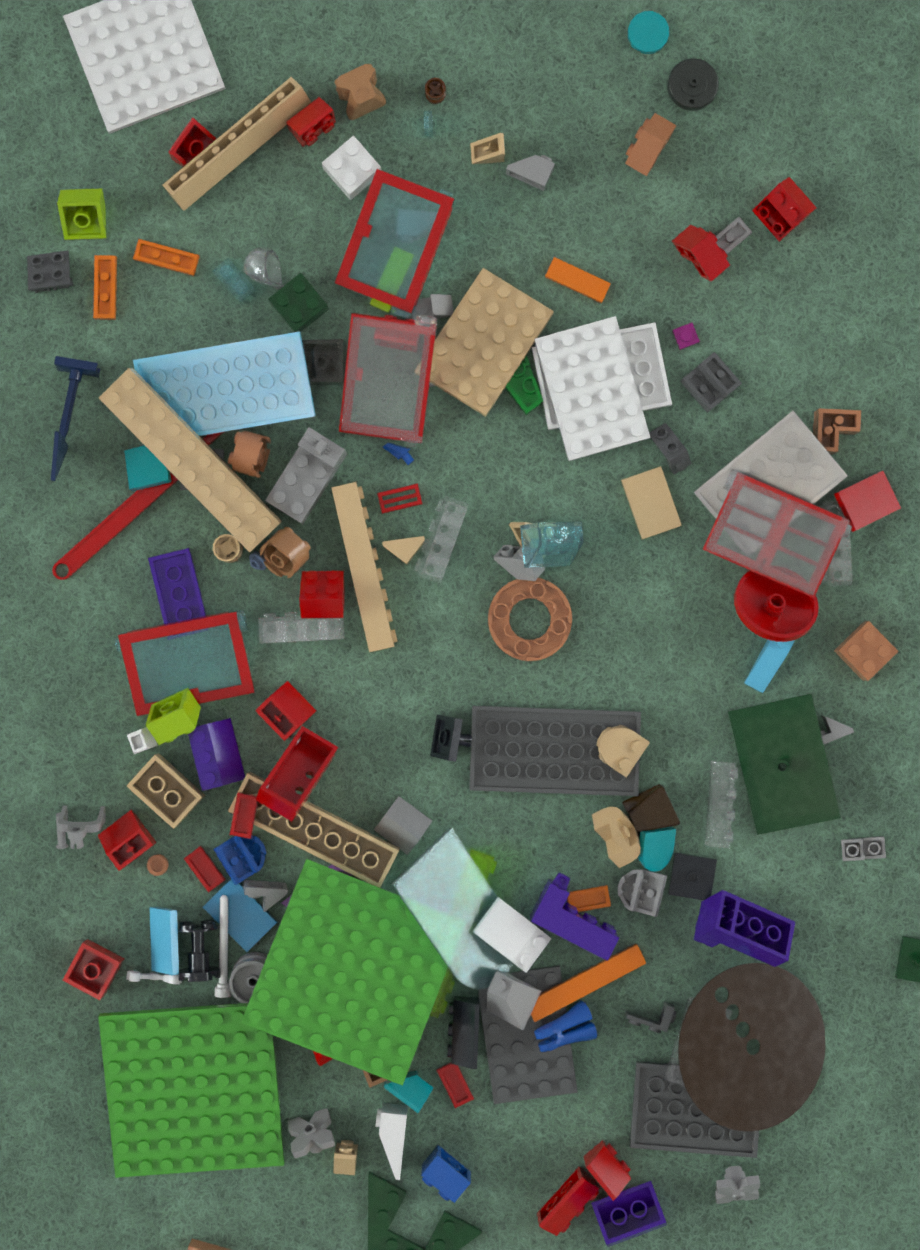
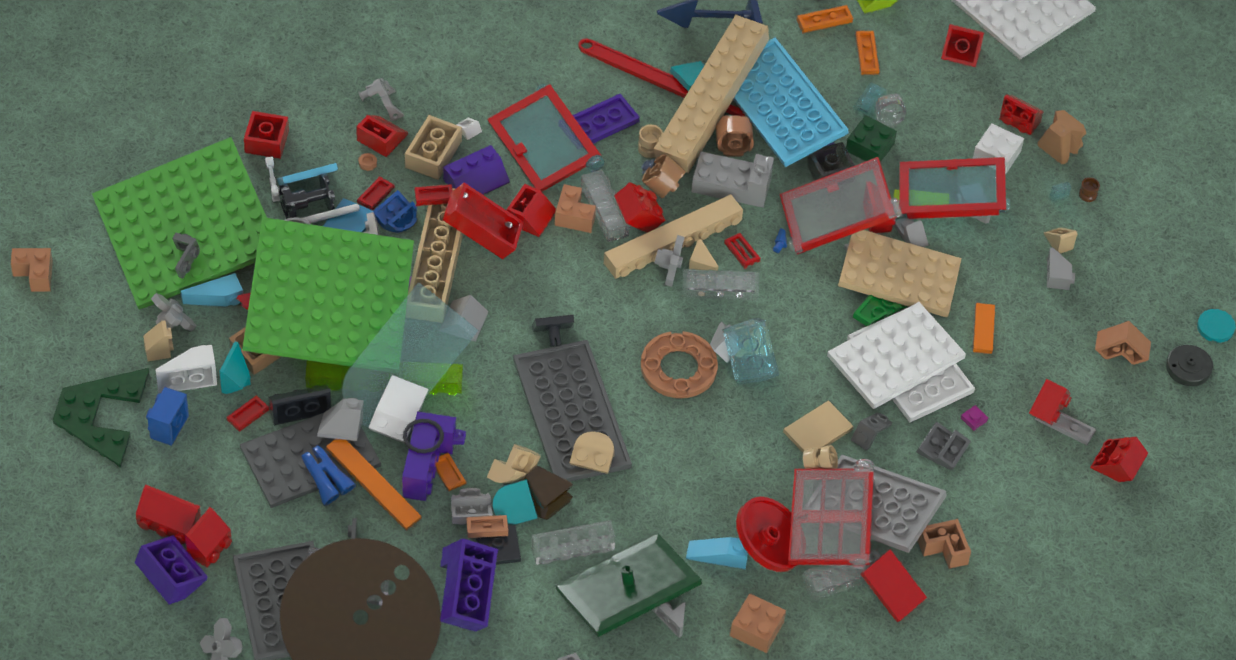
camera: 70 degrees right, 35 degrees down
(173, 716) = (497, 133): lime brick -> none
(236, 144) = (977, 69): tan brick -> none
(246, 1099) = (191, 251): none -> dark grey bracket
(293, 1070) = (214, 293): none -> medium azure slope
(297, 669) = (573, 213): none -> nougat brick
(400, 584) = (670, 259): none -> light grey plant
(565, 905) = (423, 450): none -> black piece
(676, 884) = (487, 526): none -> nougat plate
(698, 519) = (823, 458): none -> tan wheel

